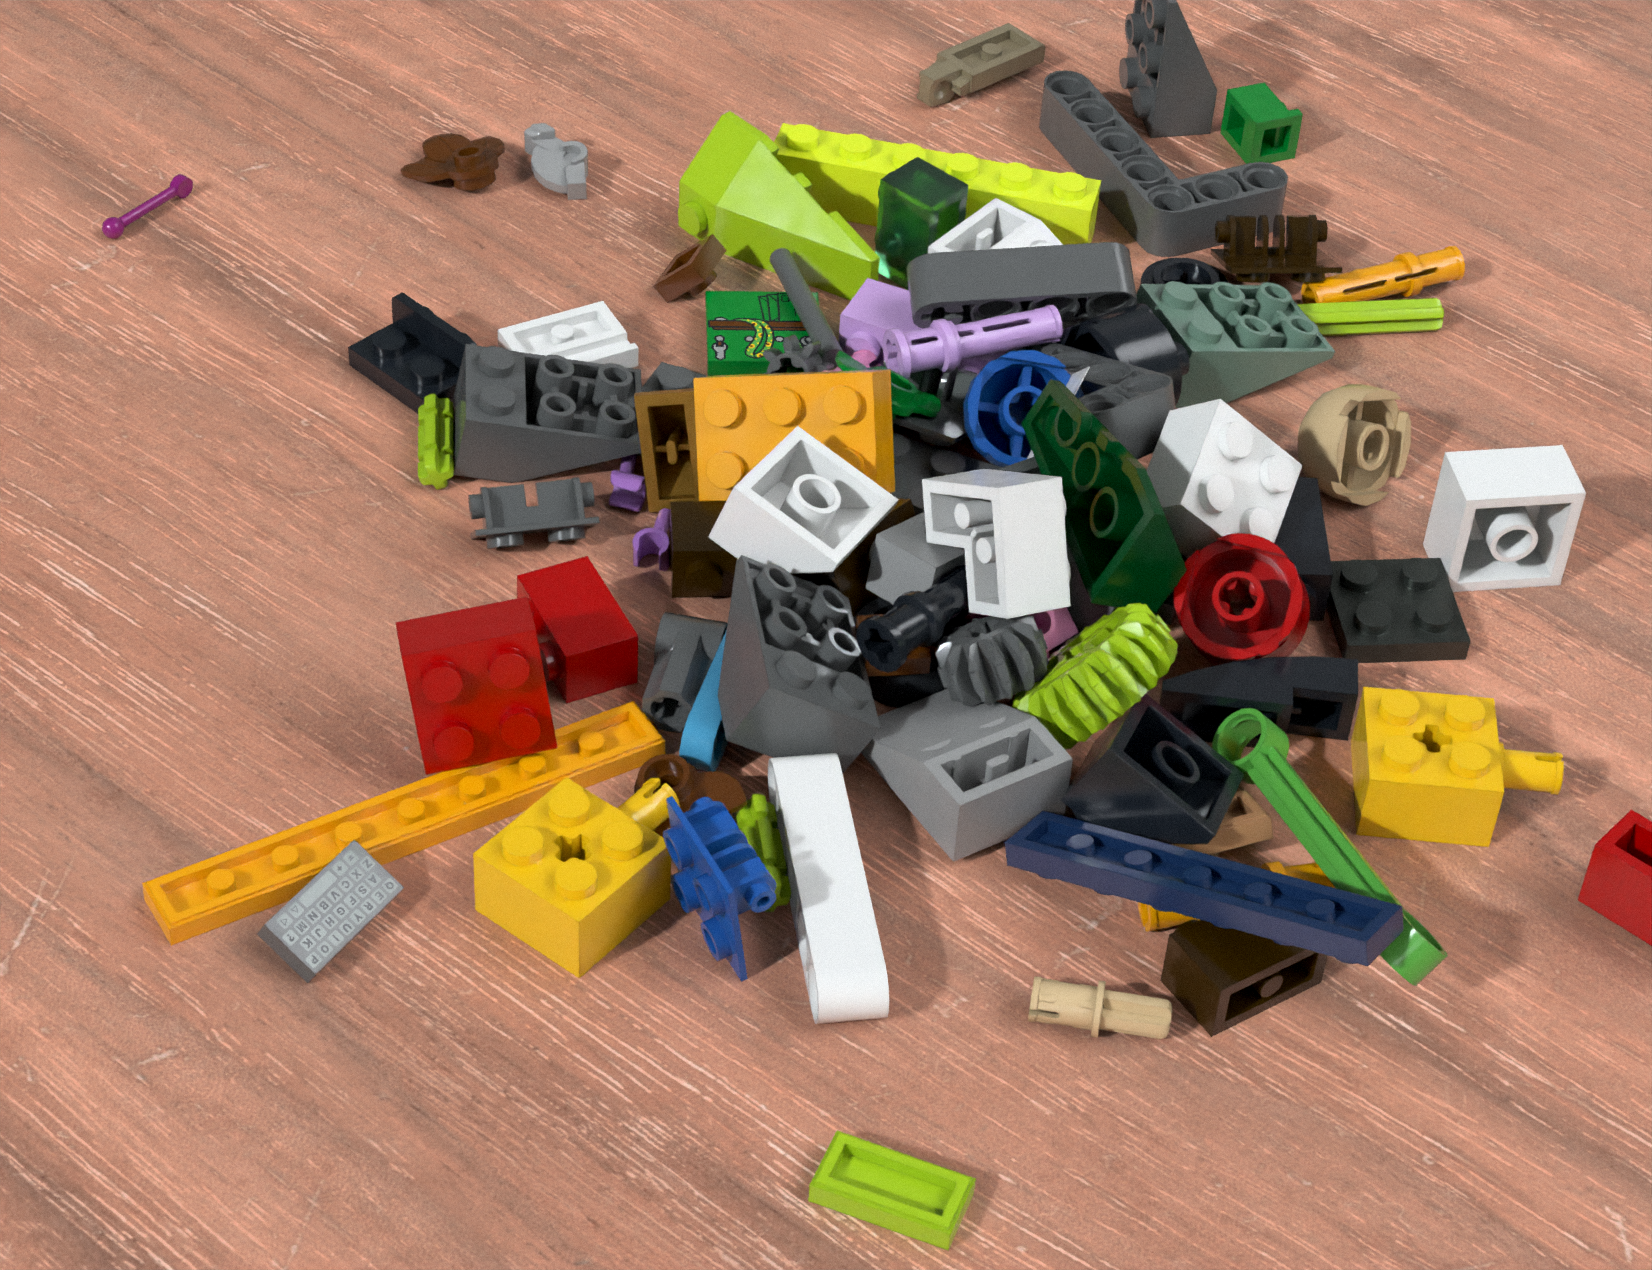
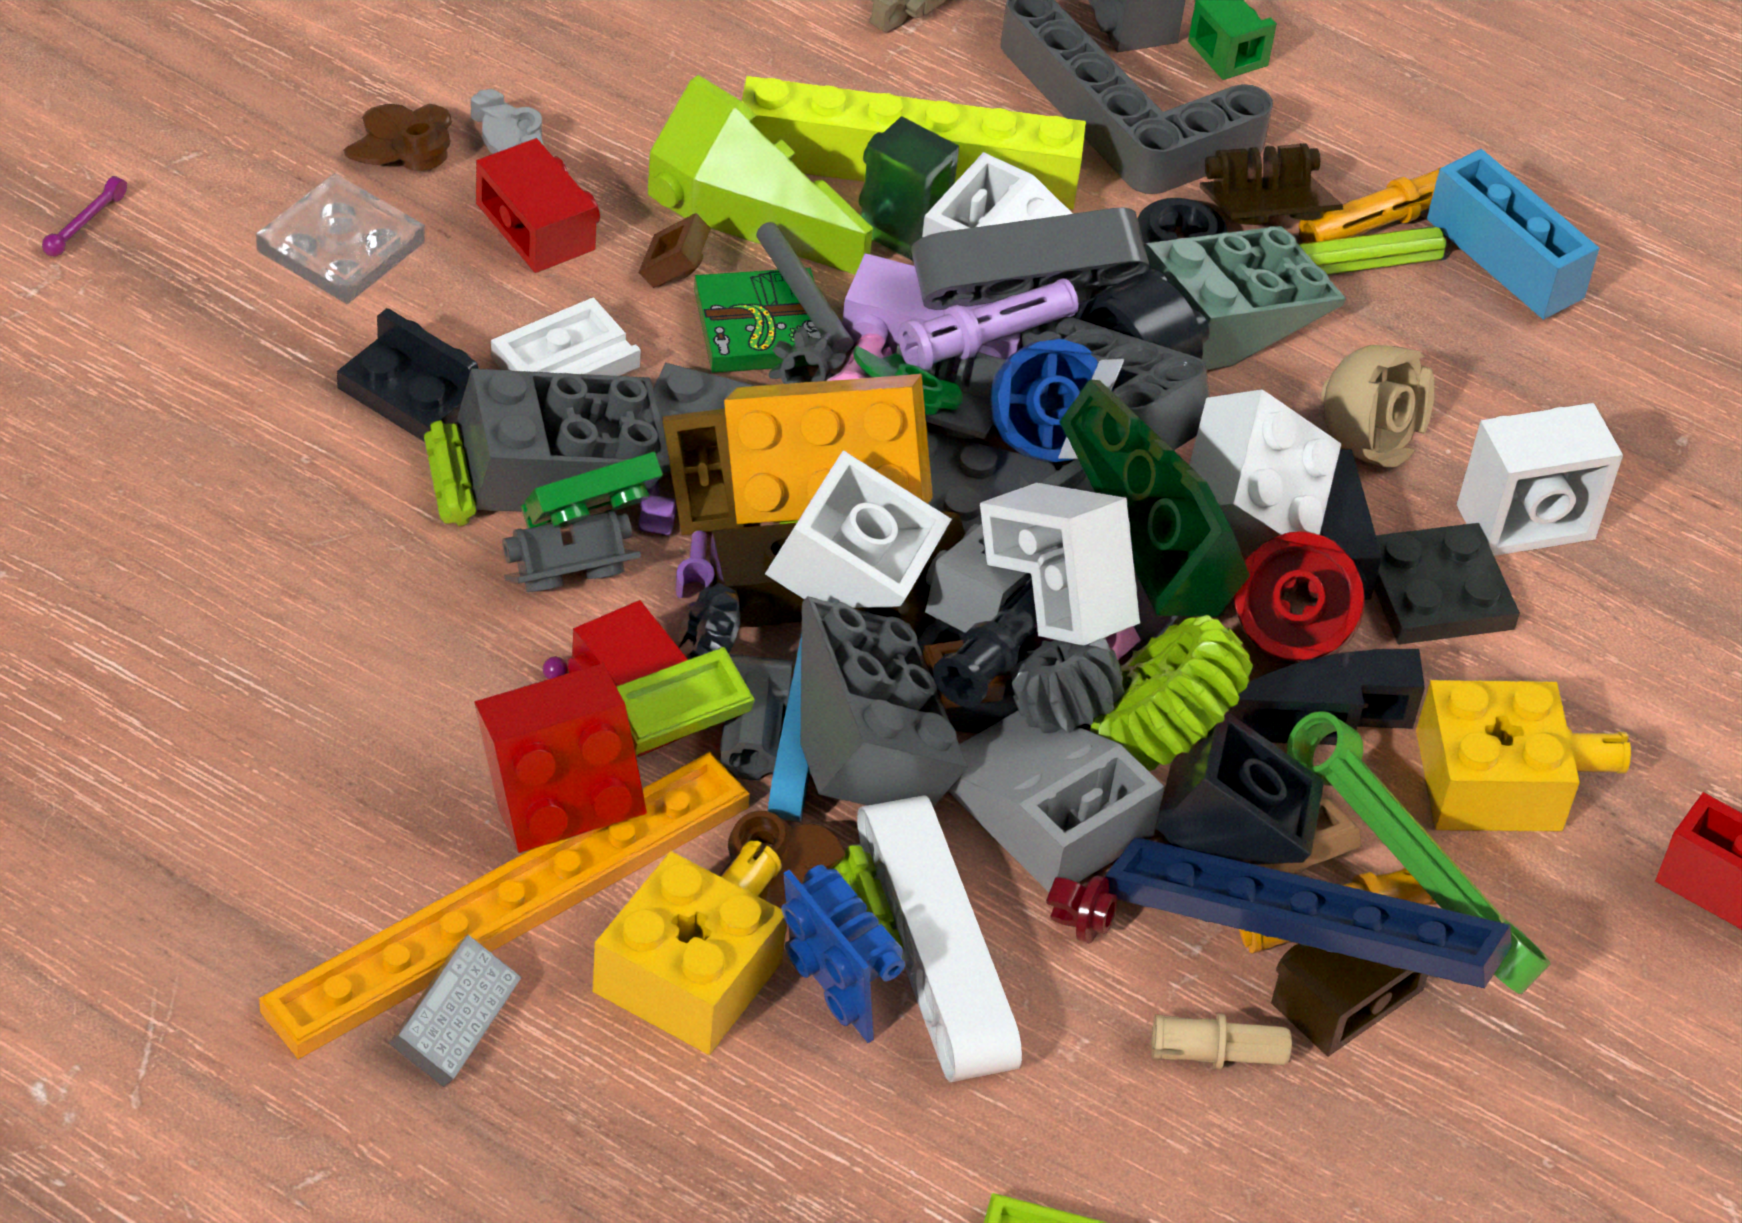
camera: 10 degrees left, 5 degrees up
(378, 238) = (340, 238): none -> clear plate
(559, 455) = (573, 497): none -> green plate
(567, 222) = (536, 205): none -> red brick
(605, 645) = (684, 699): none -> lime tile
(651, 589) = (710, 622): none -> black gear
(980, 872) = (1085, 908): none -> dark red plate
(1510, 306) = (1512, 233): none -> dark azure brick

